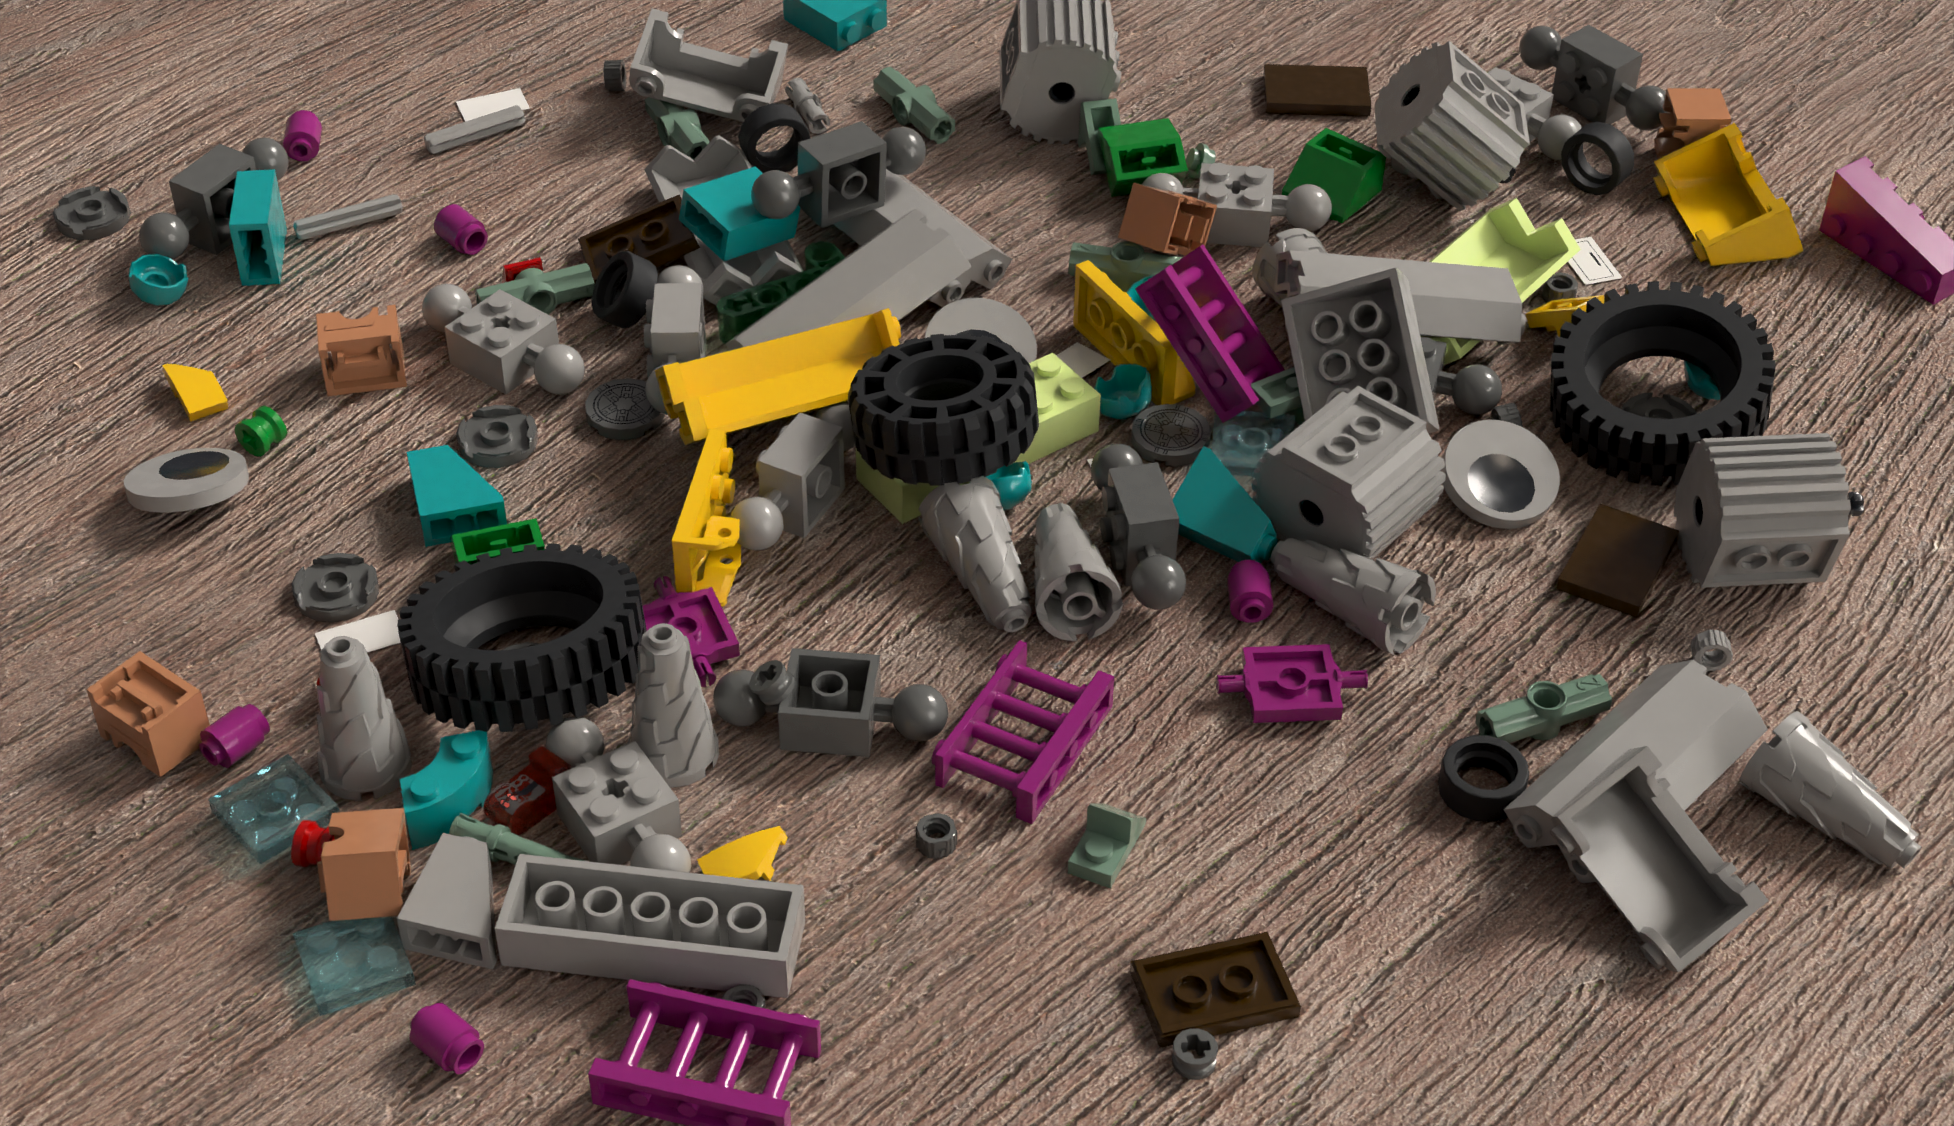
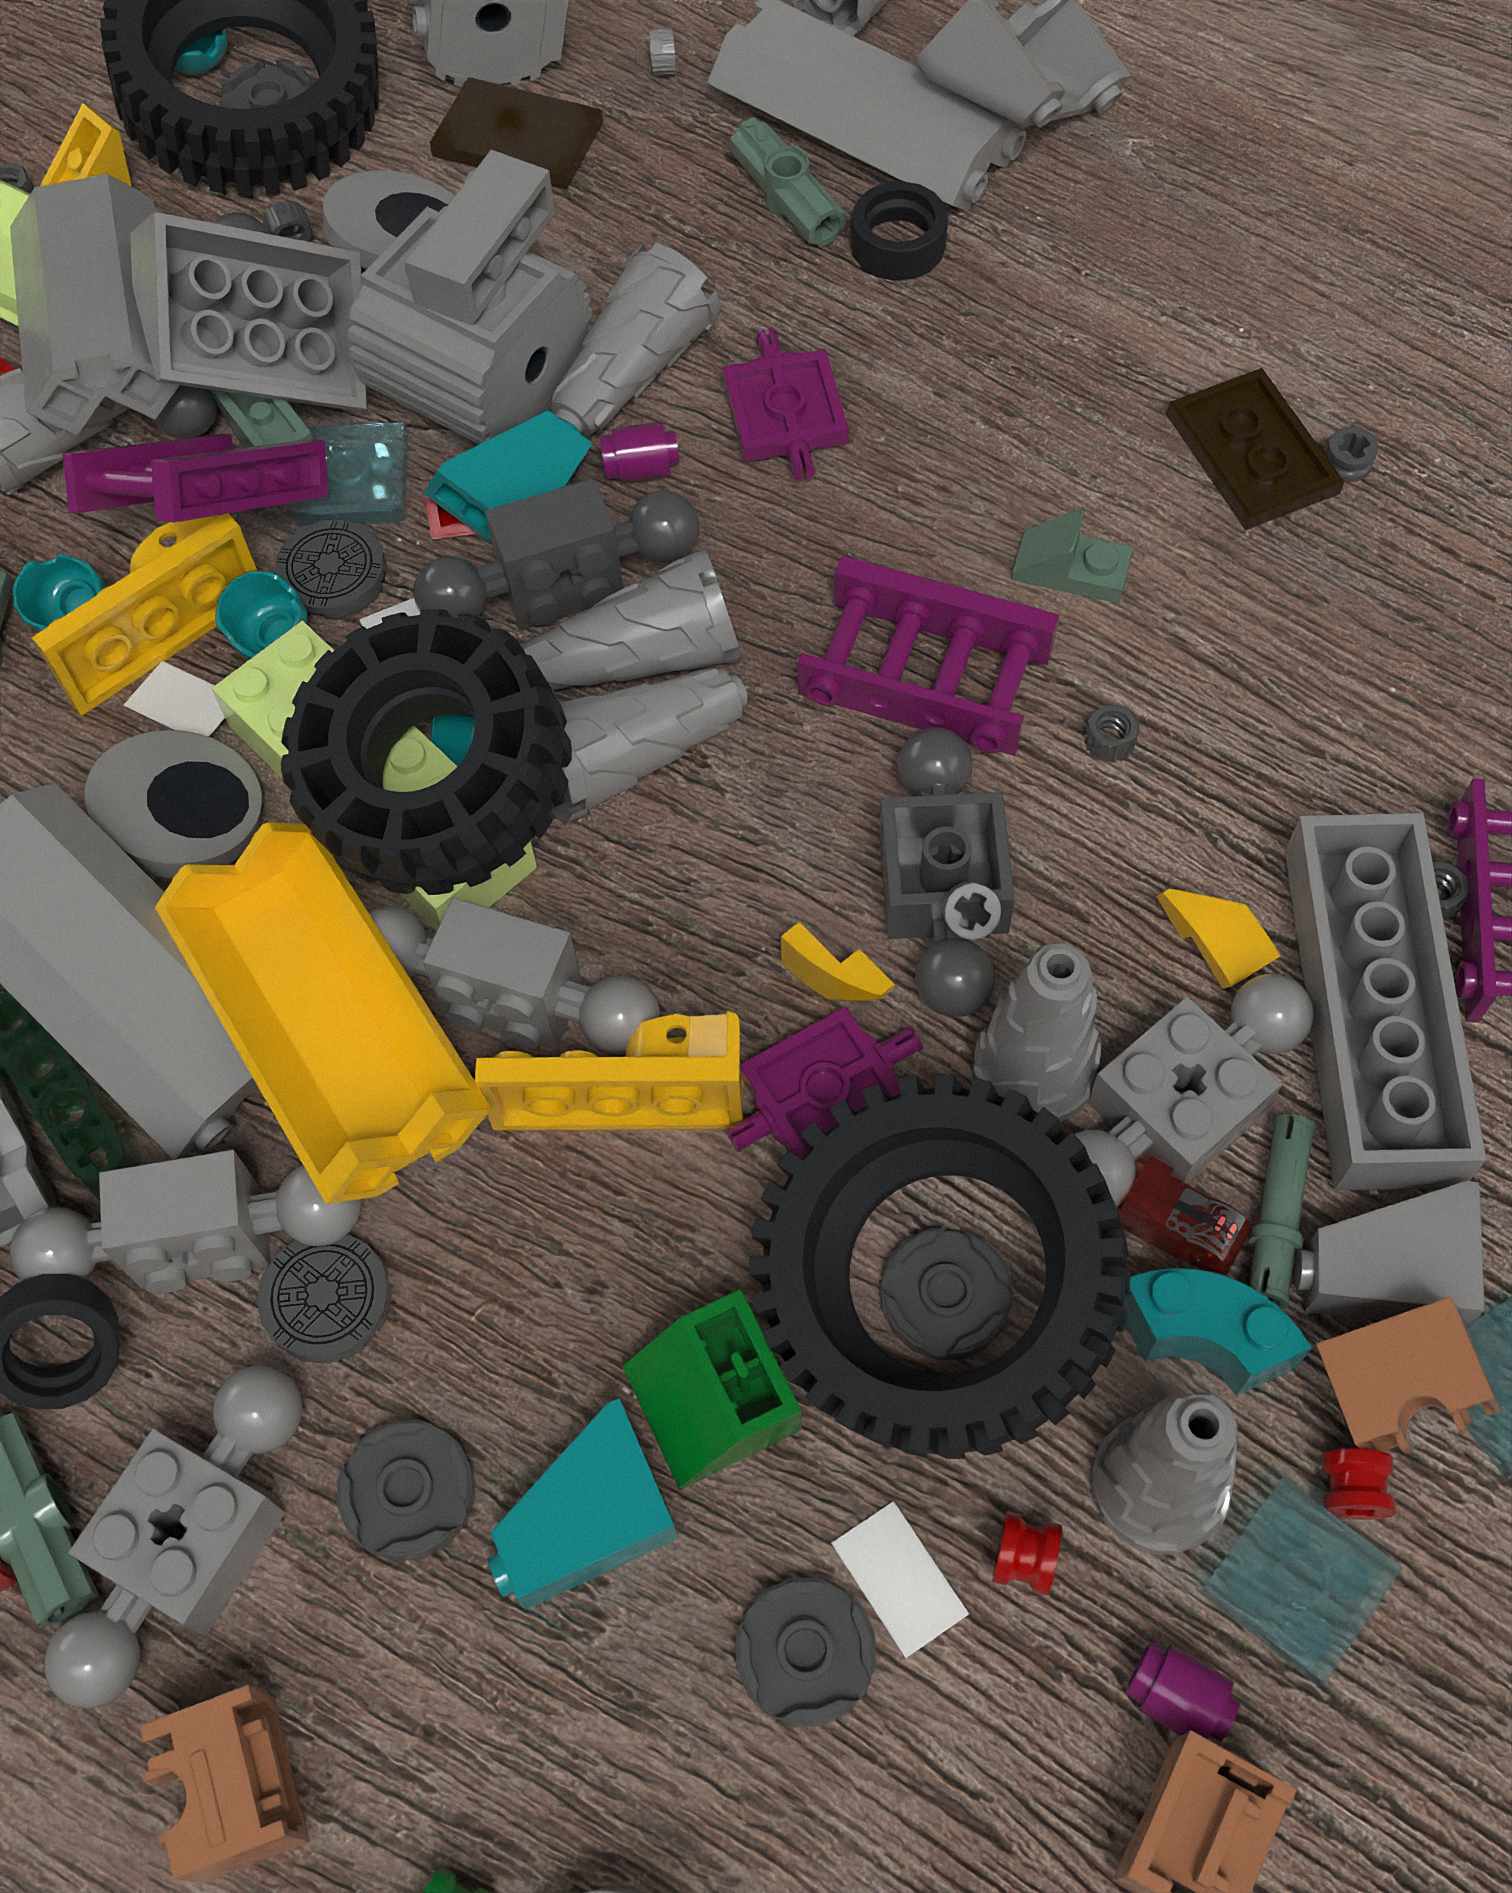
camera: 95 degrees left, 20 degrees up
(771, 637) = (815, 966): none -> yellow slope
(1372, 432) = (480, 237): none -> light grey brick

